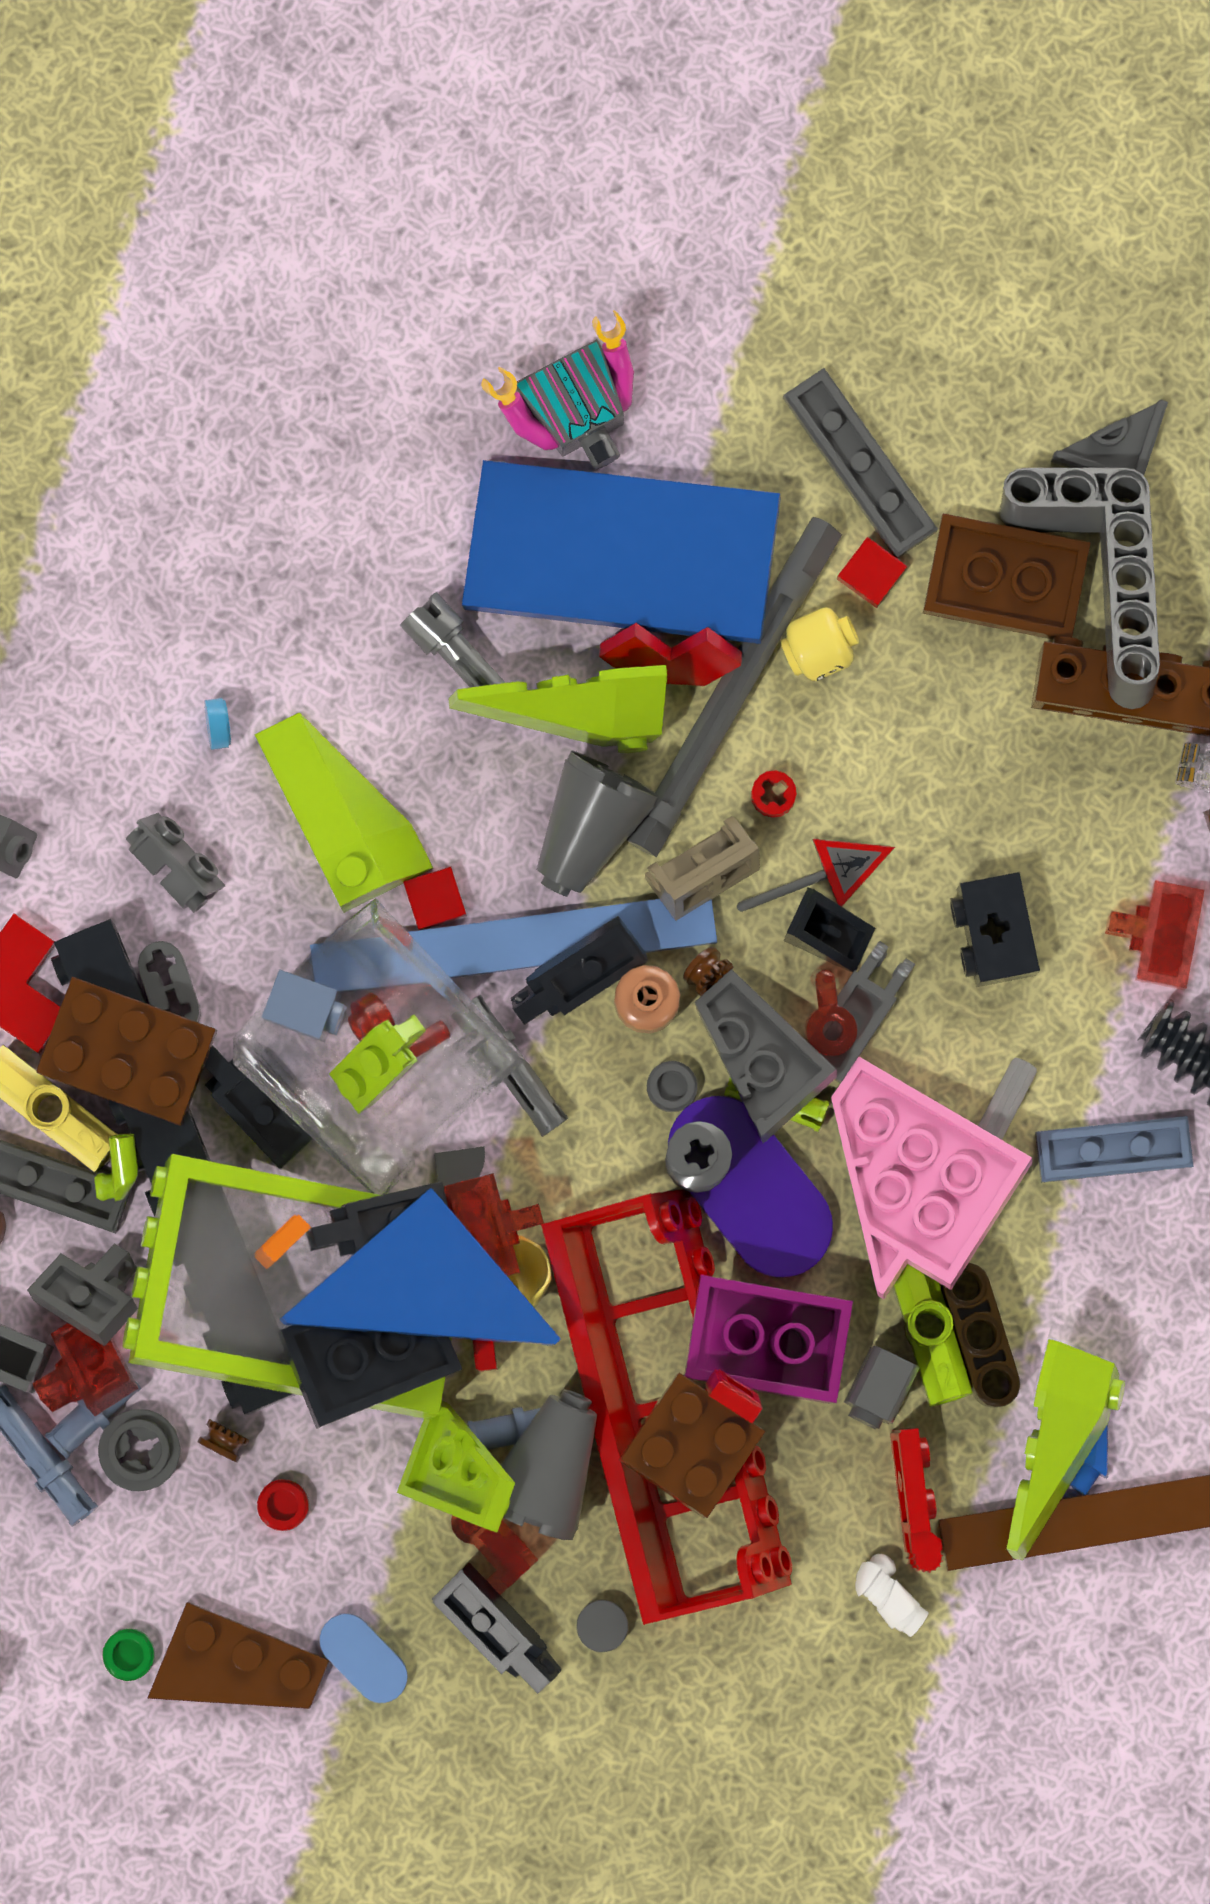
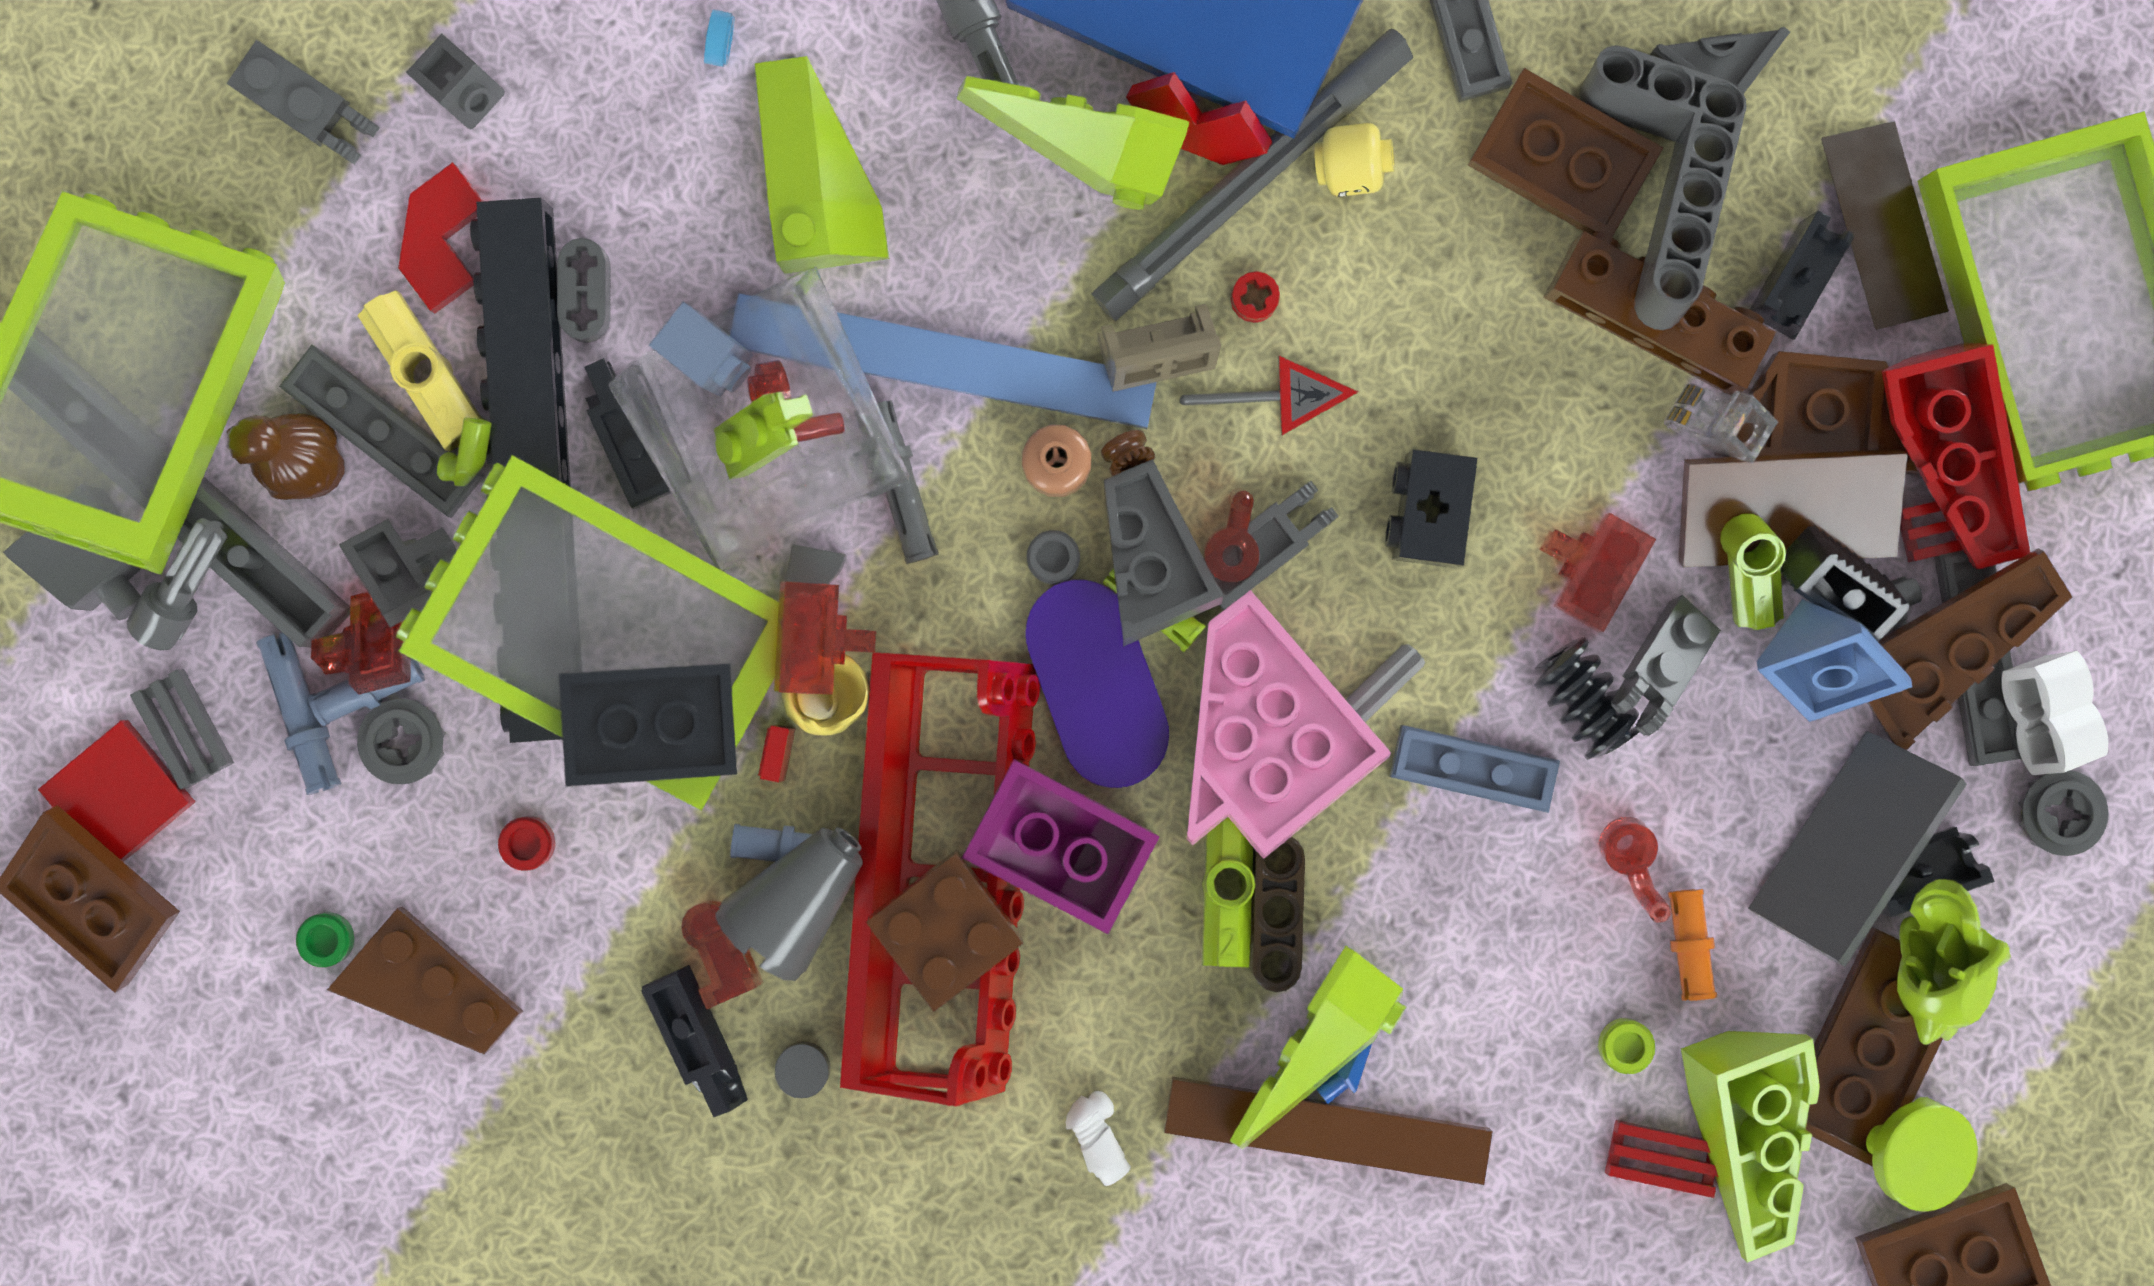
camera: 20 degrees right, 5 degrees up
(126, 1051) = (510, 337): reddish brown plate -> none
(160, 843) = (623, 140): dark grey hinge -> none
(223, 1442) = (484, 761): reddish brown bush -> none
(282, 1240) = (593, 582): orange tile -> none
(361, 1220) = (710, 597): black hinge -> none
(363, 1658) = (555, 1021): medium blue tile -> none
(423, 1280) = (724, 670): blue tile -> none
(435, 898) = (879, 289): red tile -> none
(456, 1472) = (702, 875): lime wing -> none
(579, 972) = (999, 411): black hinge -> none
(589, 822) = (1058, 261): dark grey cone -> none
(706, 1138) = (1035, 624): dark grey piece -> none
(734, 1395) = (1004, 895): red tile -> none
(829, 931) = (1263, 453): black slope -> none
(871, 572) = (1430, 106): red tile -> none
(880, 1387) = (1157, 932): dark grey brick -> none
(916, 1502) = (1155, 1053): red hinge -> none

